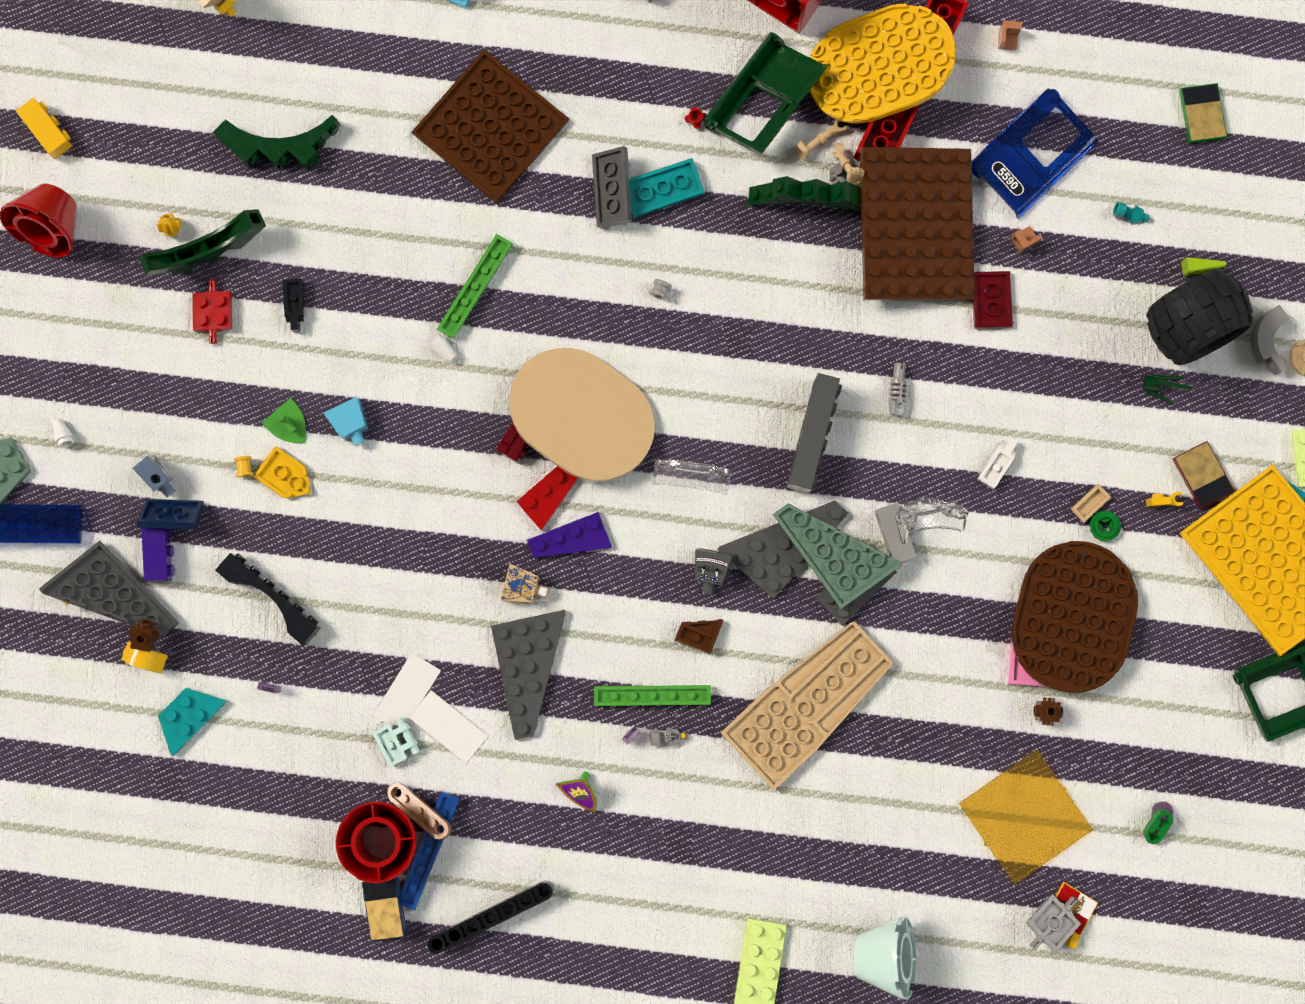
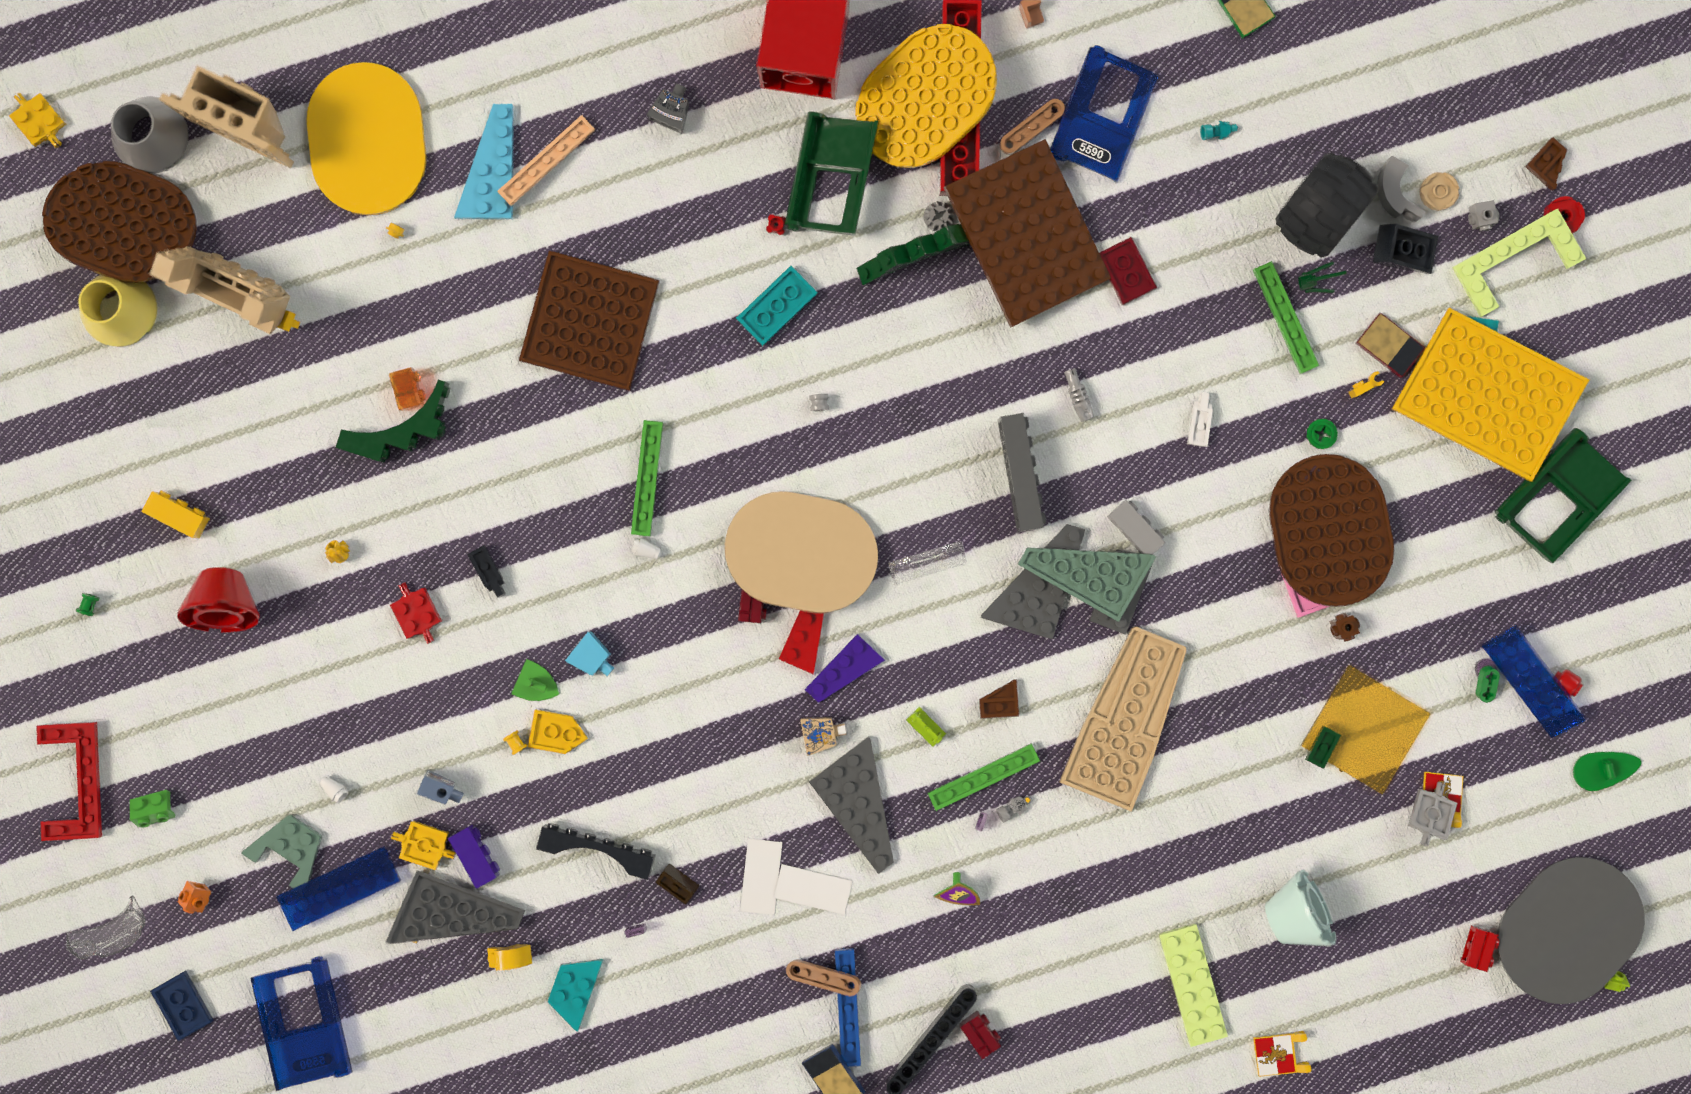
camera: 25 degrees left, 5 degrees up
(116, 521) = (423, 845): none -> yellow plate
(144, 635) = (501, 938): reddish brown brick -> none
(170, 514) = (470, 817): dark blue tile -> none
(206, 248) = (382, 559): dark green arch -> none
(300, 111) = (407, 389): none -> clear orange brick
(327, 663) = (677, 884): none -> dark brown slope
(358, 859) = (800, 1048): red cone -> none
(390, 744) = (768, 929): light aqua plate -> none
(538, 933) = (980, 1035): none -> dark red brick
(612, 187) = (730, 327): dark grey plate -> none
(621, 625) = (926, 727): none -> lime hinge
(711, 568) = (984, 637): dark grey torso -> none
(803, 150) = (890, 210): tan piece -> none
(854, 175) = (949, 215): tan piece -> none
(929, 514) = (1157, 497): clear windscreen -> none
(965, 134) = (1032, 126): none -> medium nougat plate
(978, 813) = (1323, 747): none -> dark green plate
(1025, 239) = (1132, 199): nougat panel -> none
(1090, 503) = (1300, 418): tan tile -> none
(1118, 406) = (1285, 317): none -> bright green plate
(1196, 266) = (1301, 152): lime slope -> none
(1202, 844) = (1534, 681): none -> clear blue plate
(1233, 860) = (1570, 681): none -> red head
(1233, 958) = (1604, 769): none -> green shield
(1255, 393) = (1405, 248): none -> black slope

